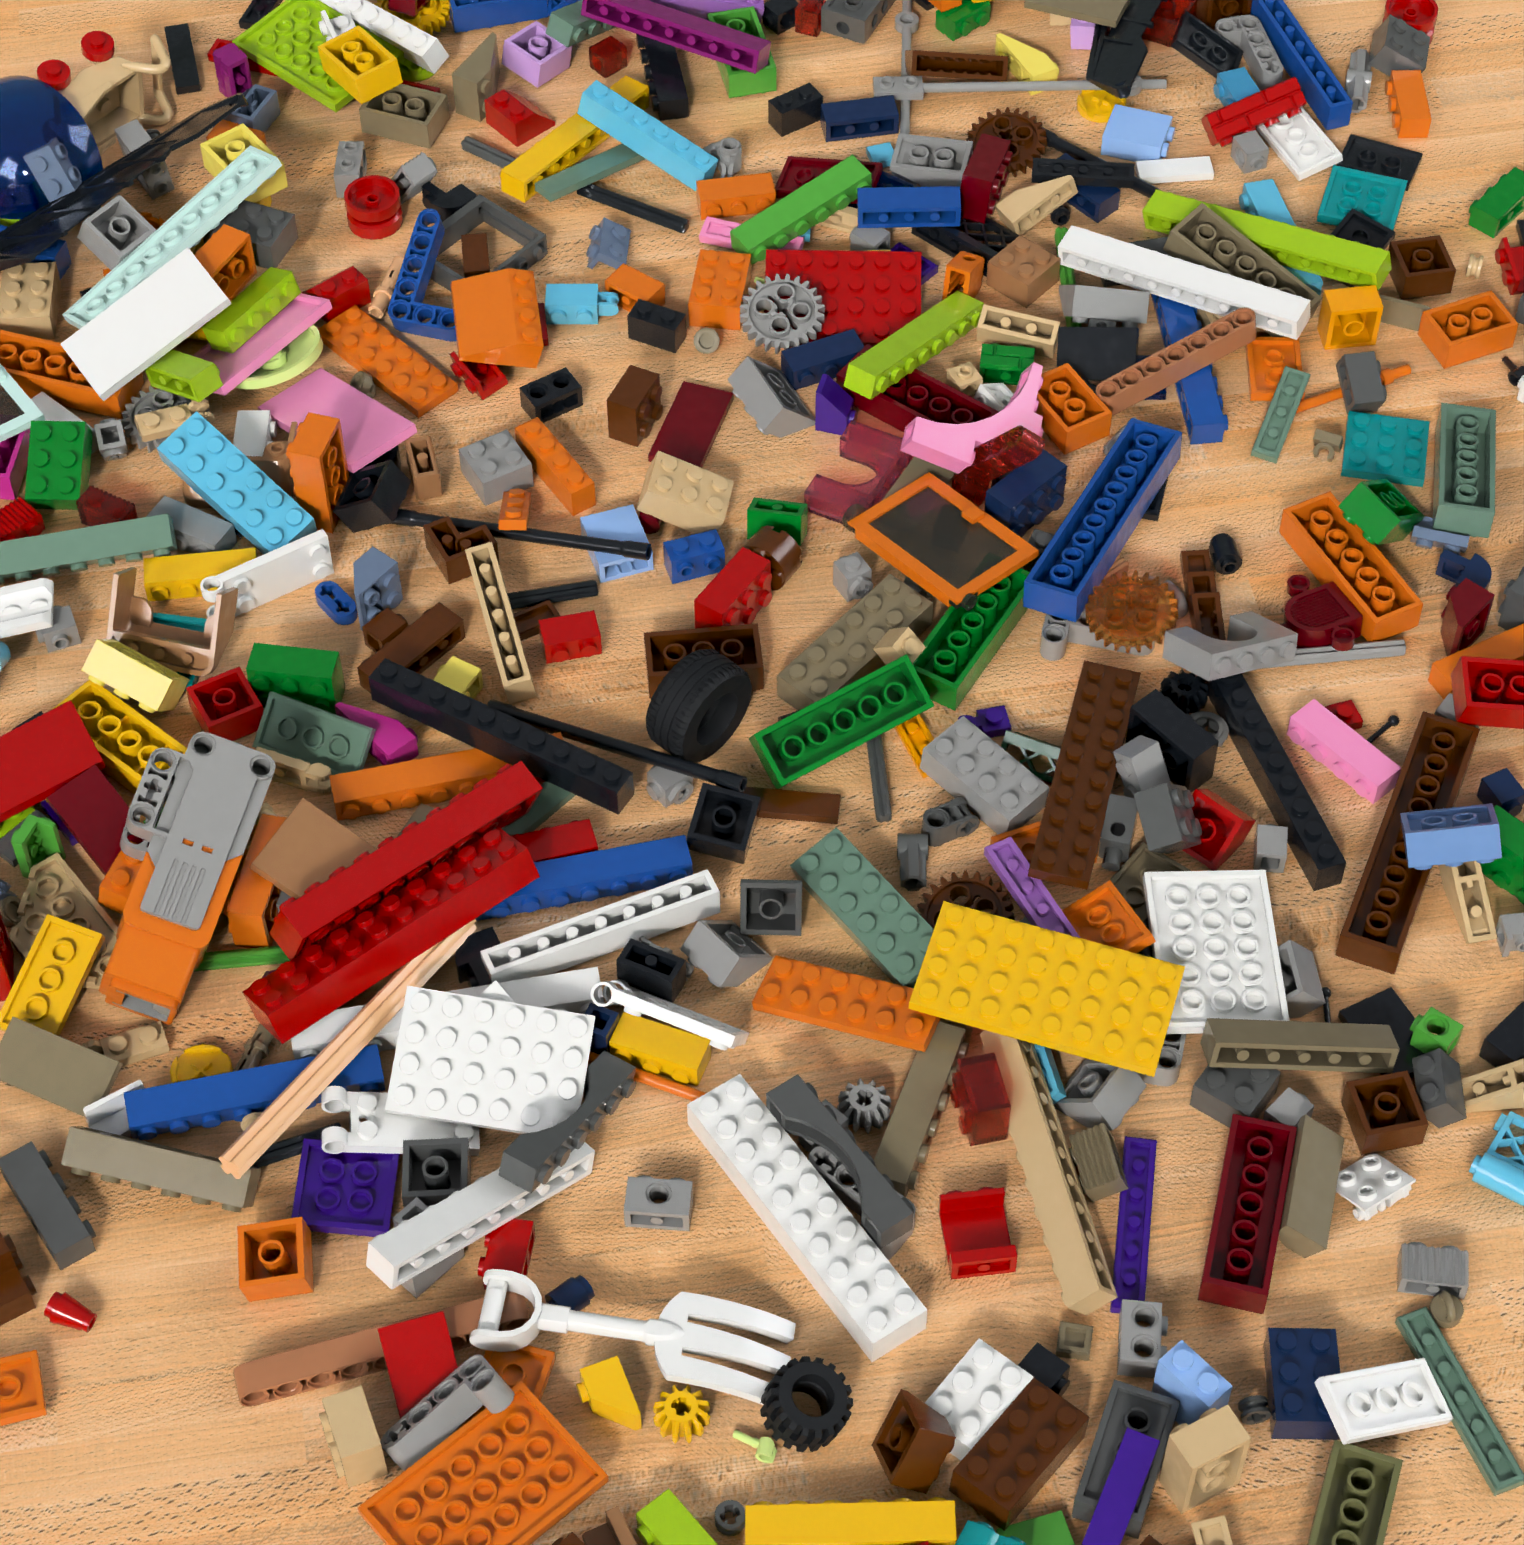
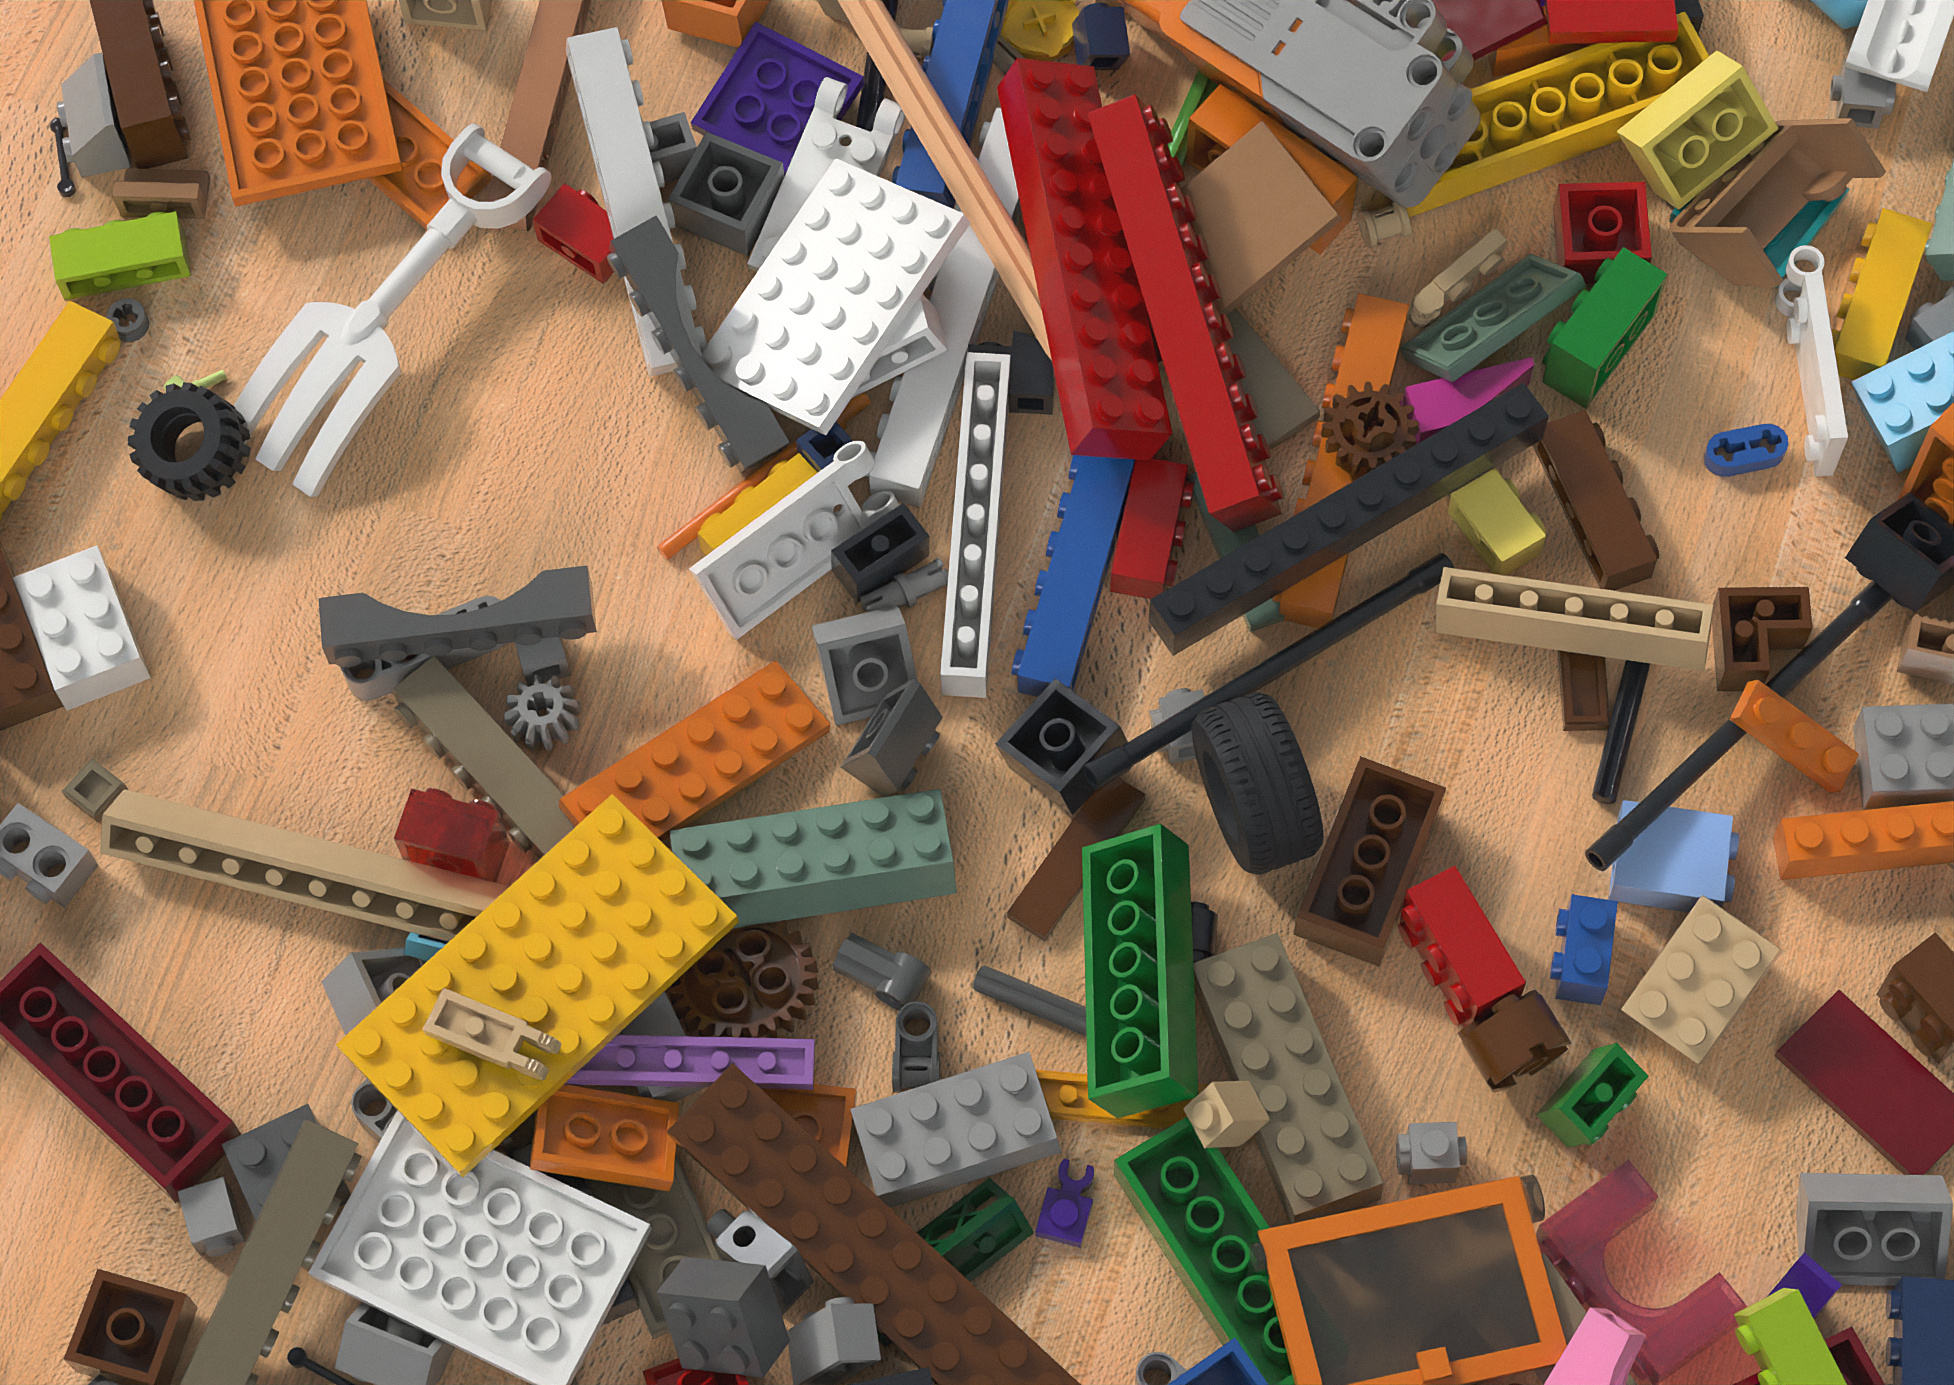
camera: 120 degrees right, 15 degrees up
(204, 1020) = (1101, 36): none -> dark blue brick
(376, 584) = (1727, 484): sand blue slope -> none
(383, 629) = (1650, 482): reddish brown brick -> none
(417, 1357) = (488, 82): red tile -> none
(433, 750) = (1353, 418): none -> reddish brown gear
(446, 1409) = (417, 98): light grey beam -> none
(570, 637) = (1510, 708): red brick -> none
(571, 1293) = (489, 271): dark blue brick -> none
(609, 1393) = (342, 262): yellow slope -> none
(669, 1215) = (554, 396): light grey brick -> none
(694, 1416) = (266, 317): yellow gear -> none
(807, 1218) = (429, 562): white brick -> none
(913, 1443) = (65, 522): reddish brown slope -> none
(976, 1233) = (290, 753): red panel -> none
(1047, 1368) = (68, 723): black brick -> none
(1097, 1162) = (288, 938): dark tan brick -> none
(1101, 980) = (487, 1033): none -> tan hinge
(1134, 1221) = (196, 946): dark purple tile -> none
(1311, 1188) = (90, 1169): dark tan brick -> none
(1373, 1185) = (57, 1258): white hinge -> none

